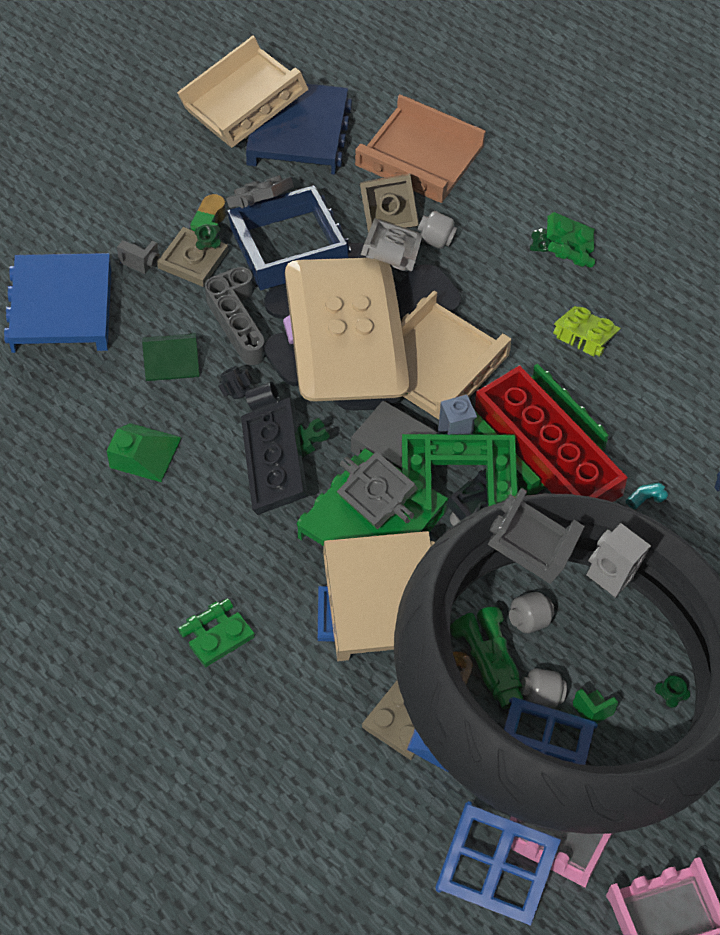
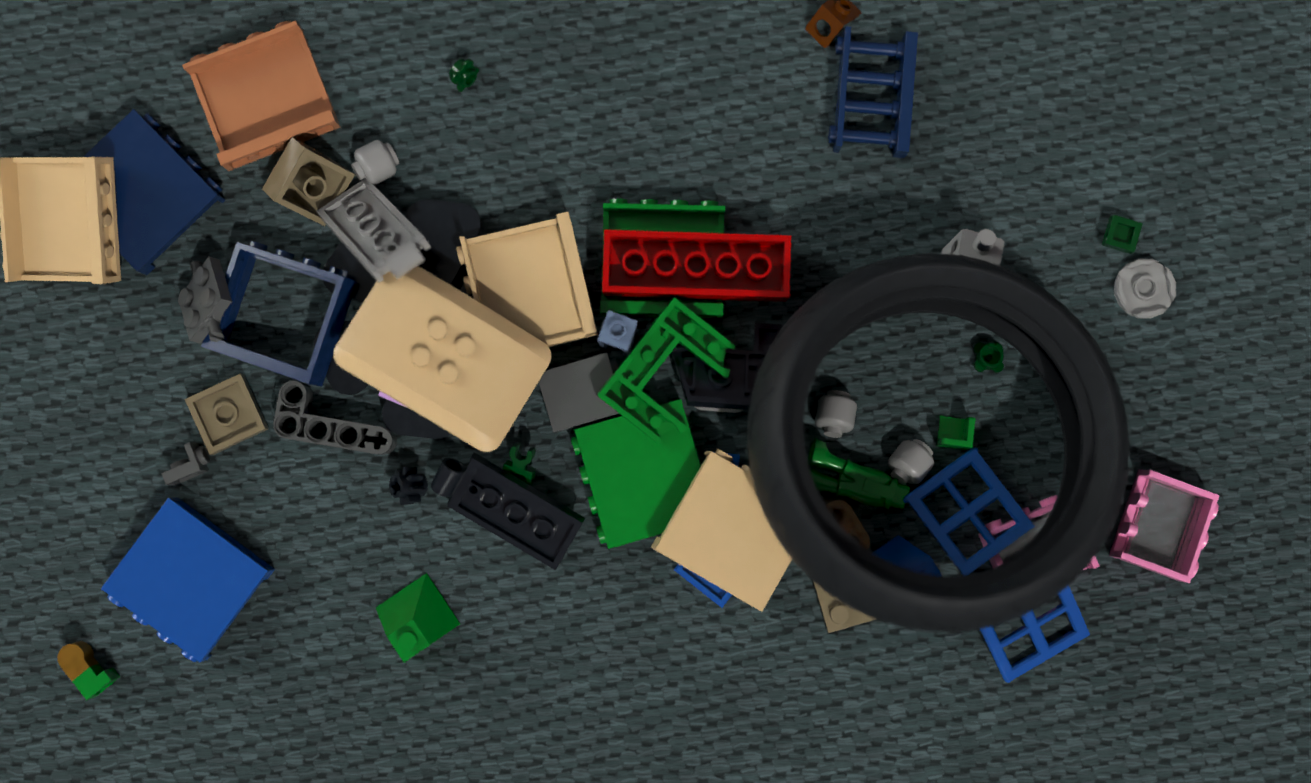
camera: 50 degrees left, 30 degrees up
(170, 357) = (327, 518): dark green slope -> none
(205, 231) = (212, 393): dark green plate -> none
(210, 212) = (191, 369): pearl gold leg -> none
(220, 639) = (660, 688): green plate -> none
(377, 490) = (635, 461): dark grey plate -> none
(533, 538) = (836, 403): dark grey panel -> none
(571, 235) = (480, 44): green plate -> none
(590, 328) = (591, 119): lime hinge -> none
(617, 559) = (911, 351): light grey brick -> none
(644, 492) = (795, 214): teal arm -> none

